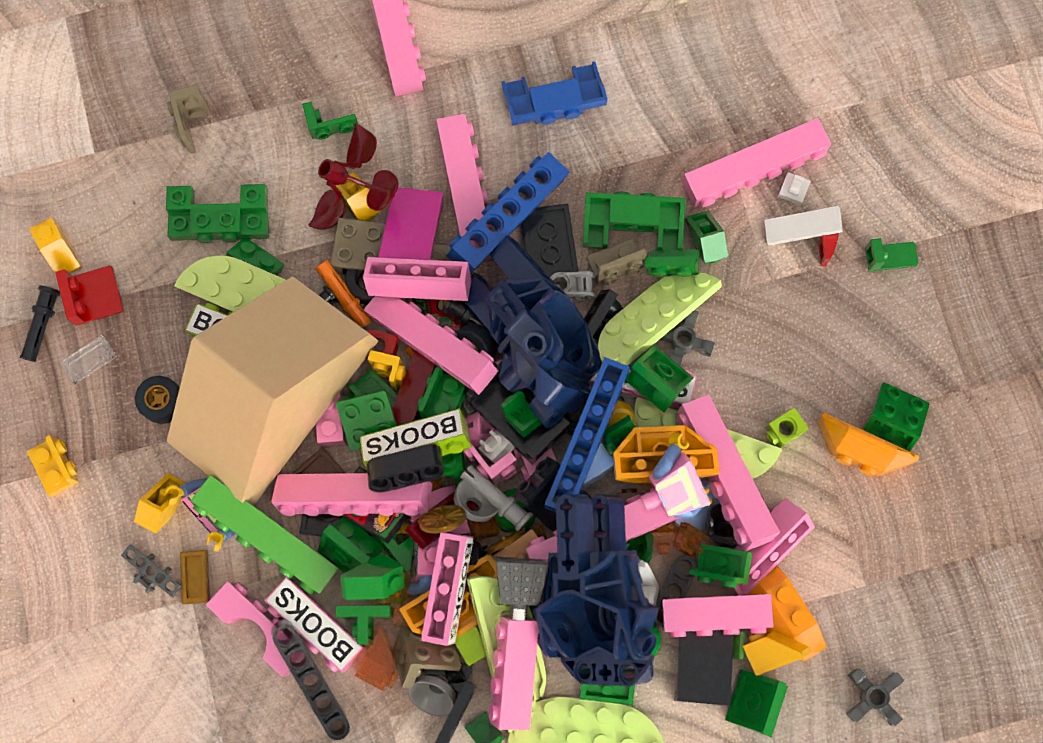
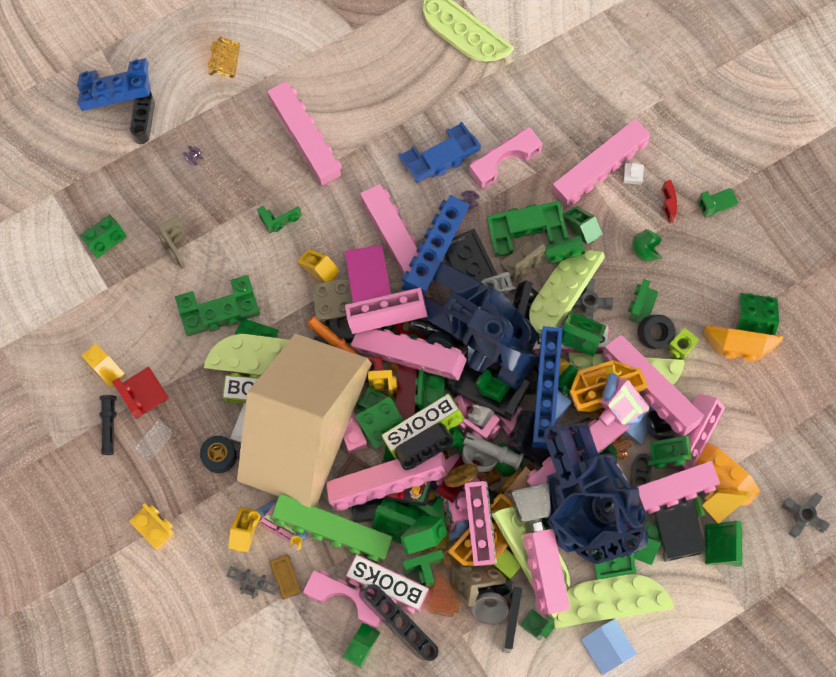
camera: 20 degrees left, 5 degrees down
(107, 86) = (103, 236): none -> green bracket
(247, 14) = (193, 155): none -> clear purple wheel
(258, 693) = (361, 645): none -> green slope
(381, 191) = (310, 230): dark red plant -> none
(573, 163) = (469, 198): none -> clear purple wheel
(663, 113) = (523, 145): none -> bright pink arch
(665, 668) = (648, 554): none -> green slope
(688, 539) = (639, 442): clear orange tile -> none
(753, 361) = (644, 302): none -> green bracket
(768, 413) = (667, 328): none -> black tyre
(778, 286) = (644, 245): none -> green helmet
(803, 225) = (649, 197): white tile -> none

